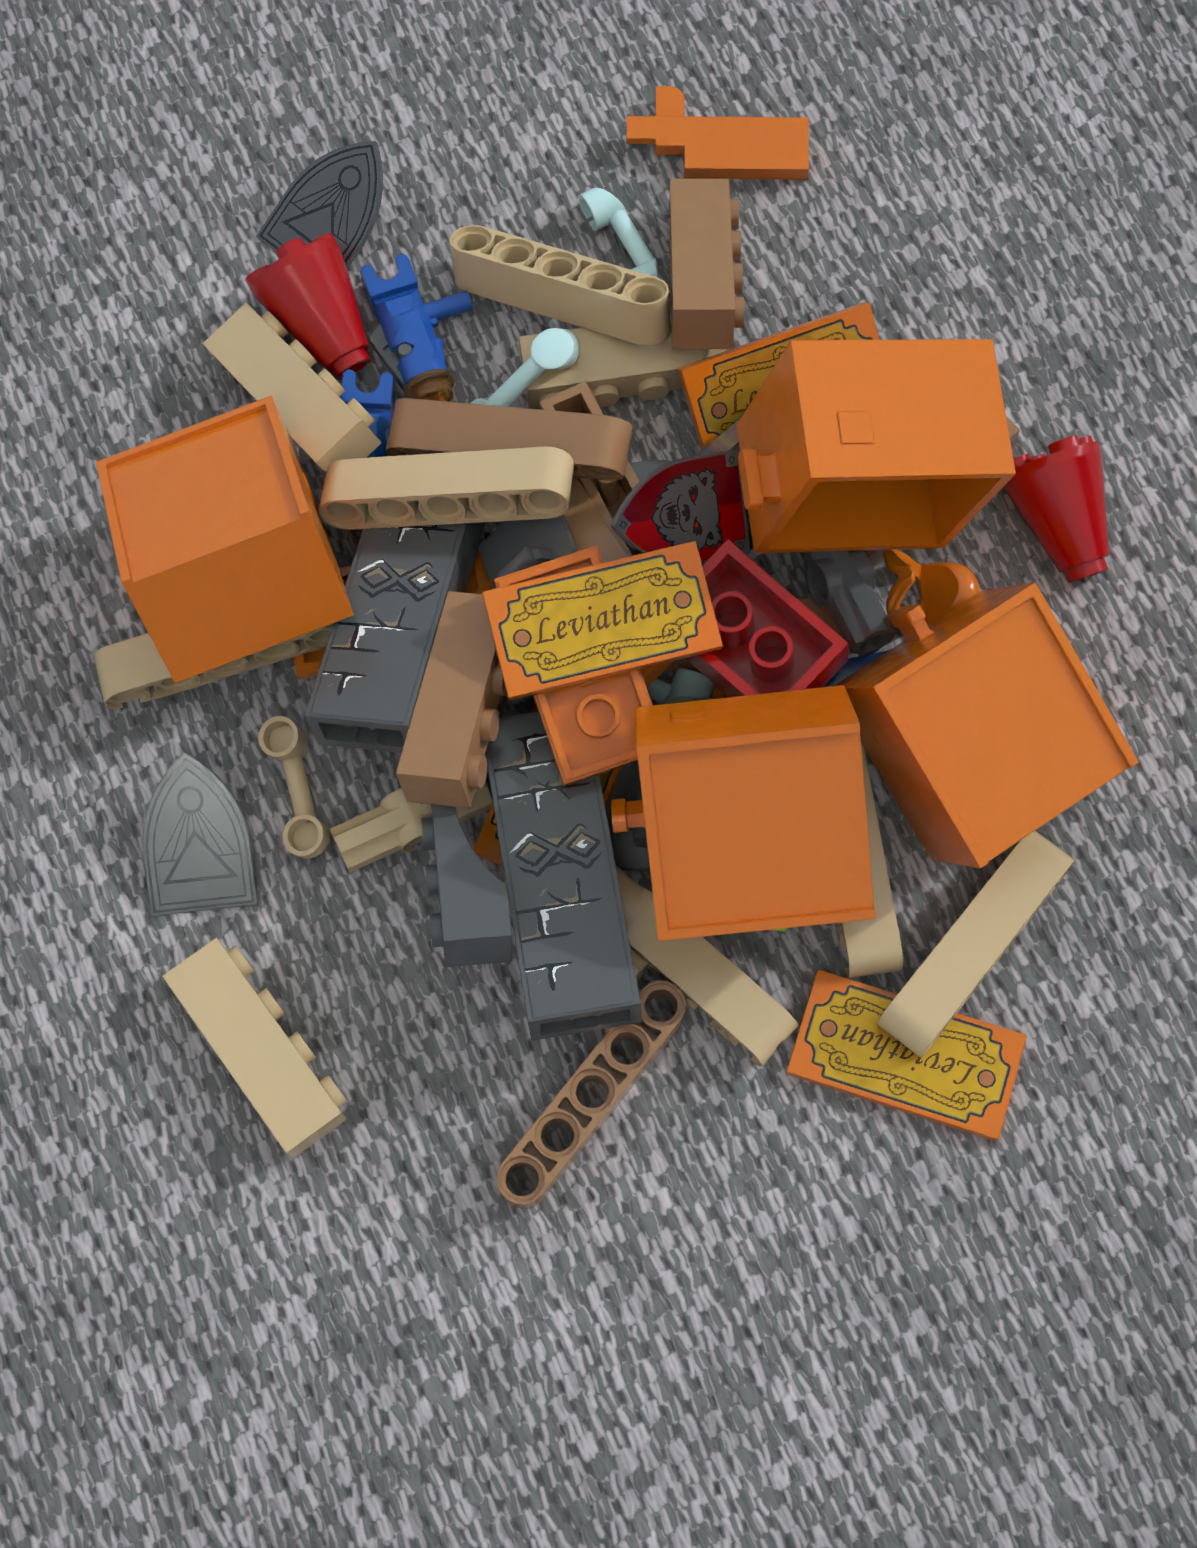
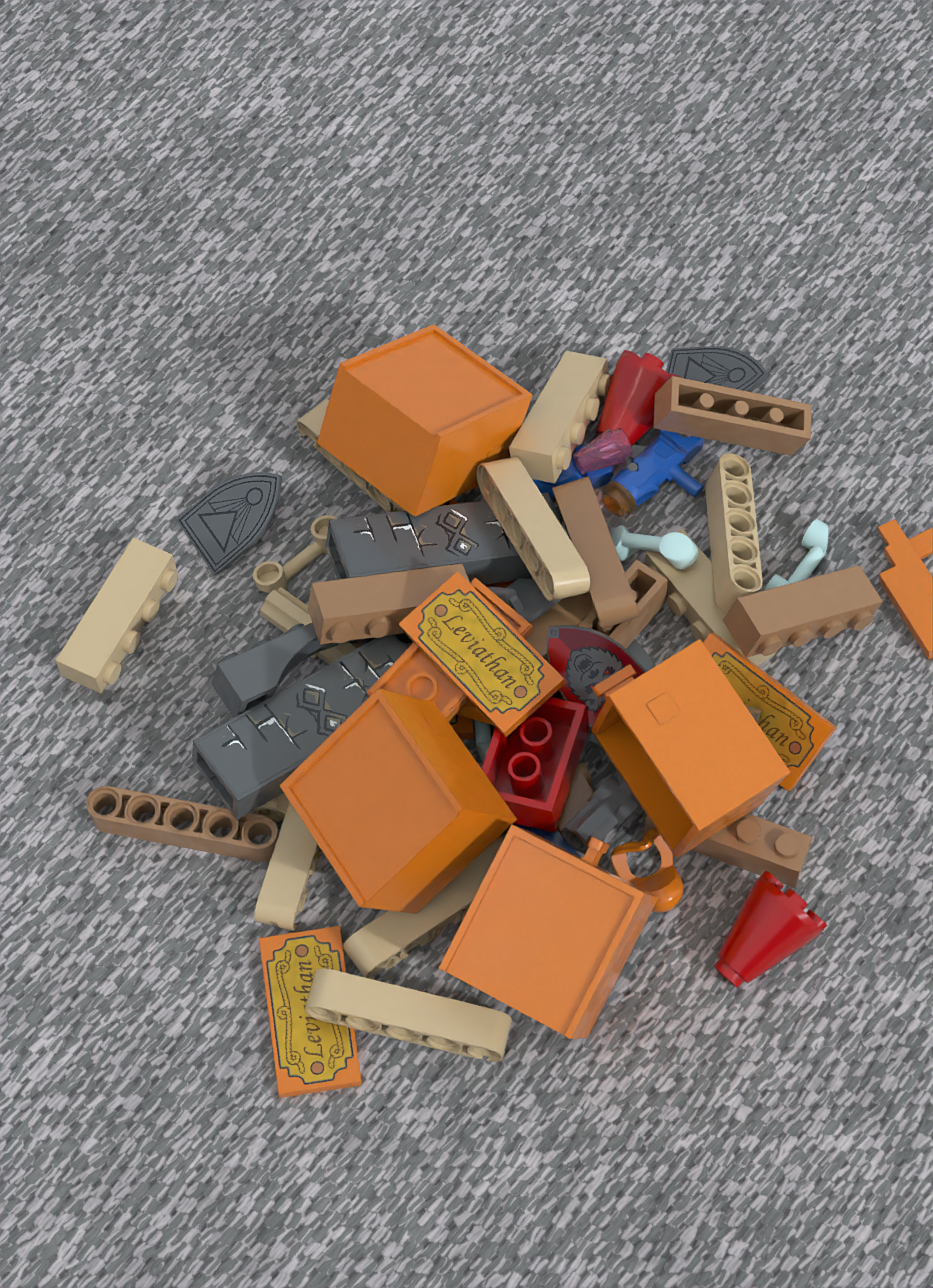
camera: 65 degrees right, 10 degrees down
(371, 366) = (604, 451): none -> clear pink cone
(408, 207) = (732, 416): none -> medium nougat brick

